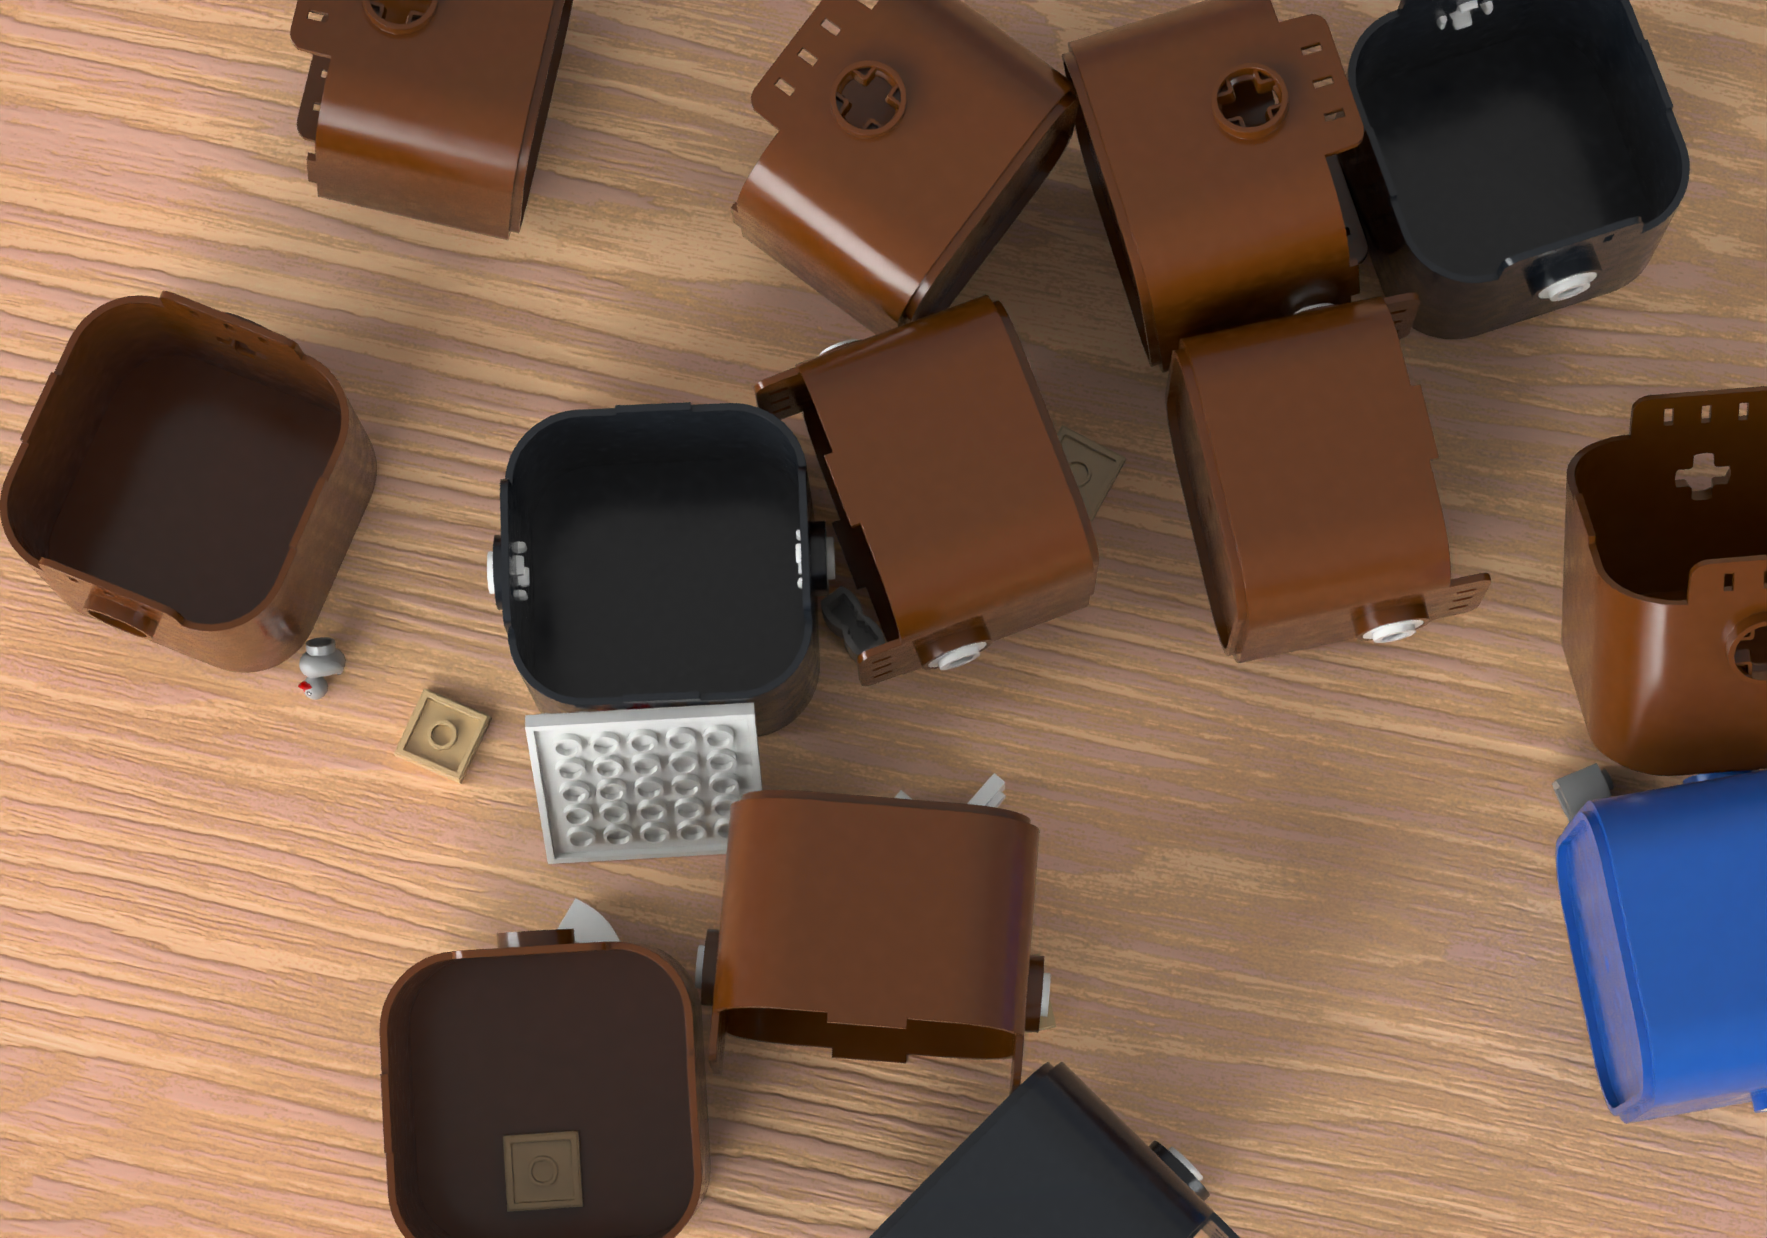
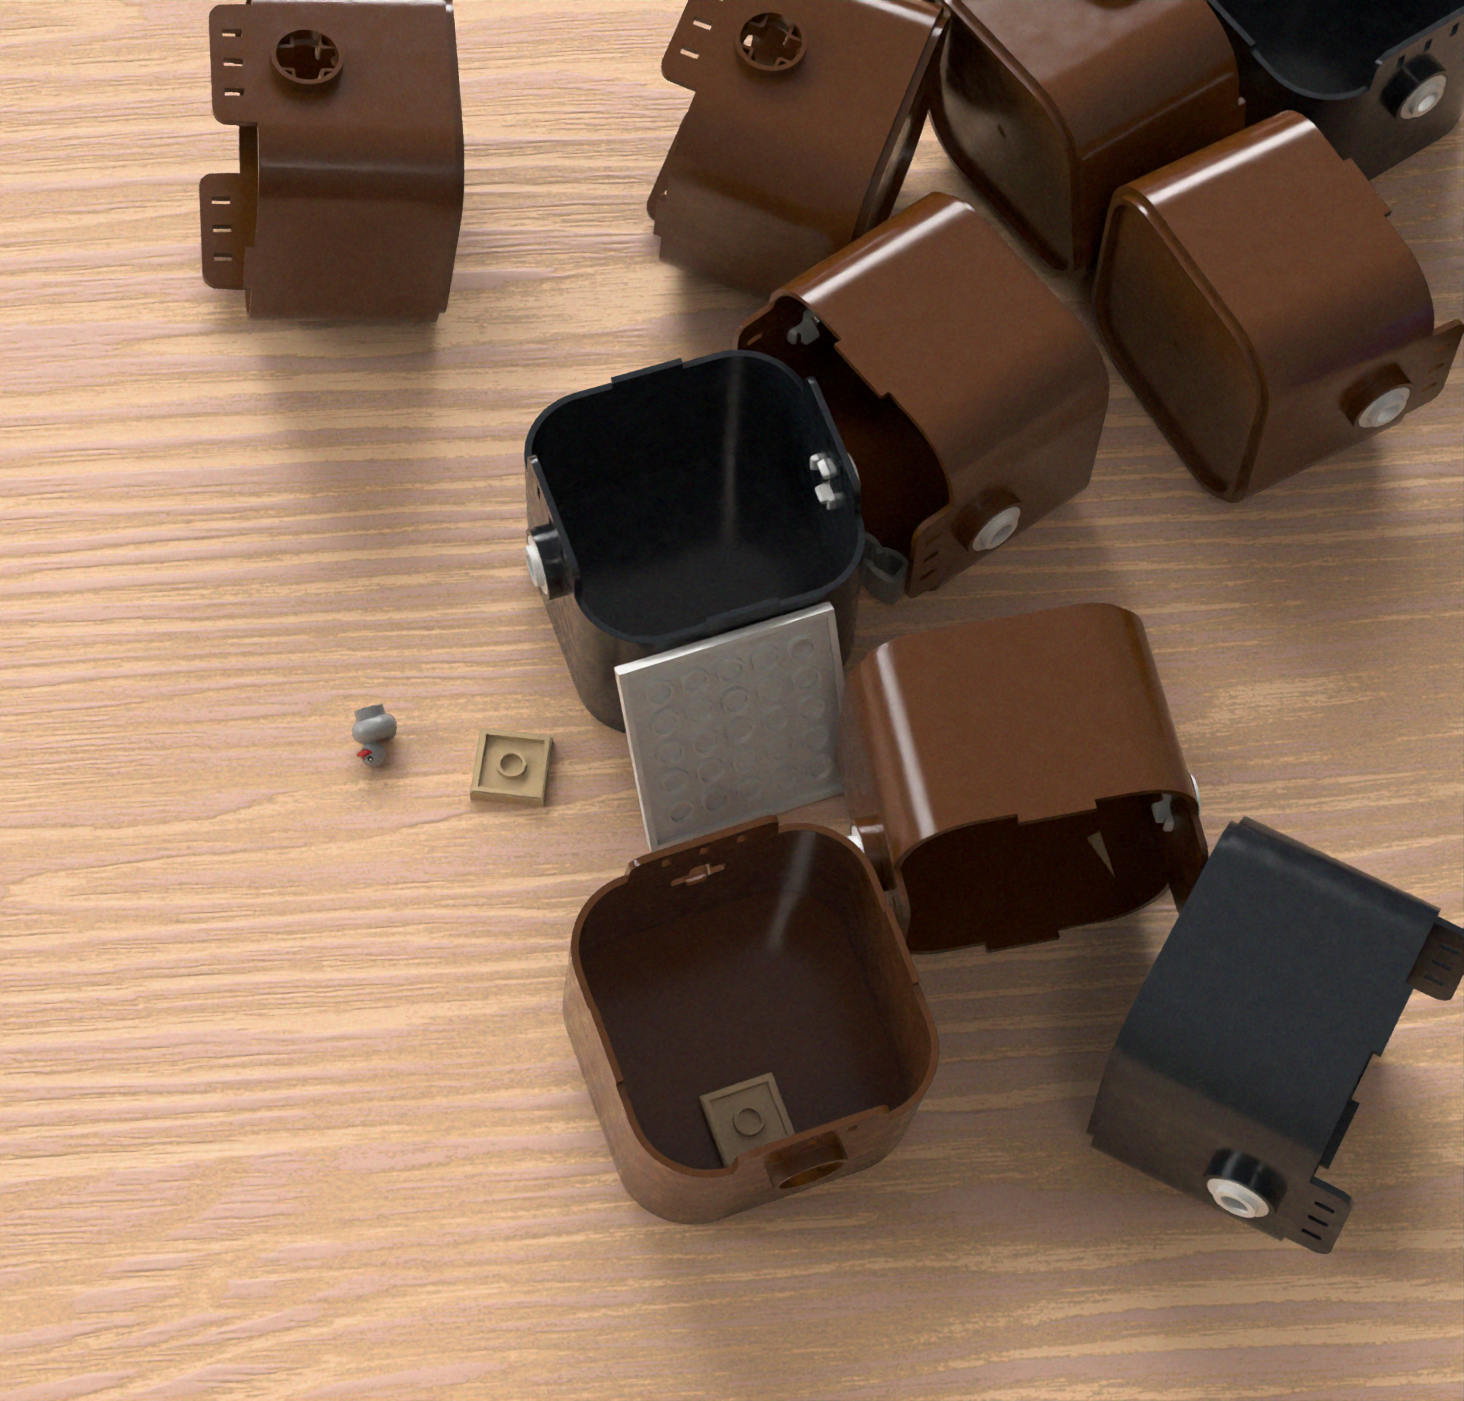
camera: 25 degrees left, 15 degrees down
(190, 481) = (205, 576): reddish brown container -> none

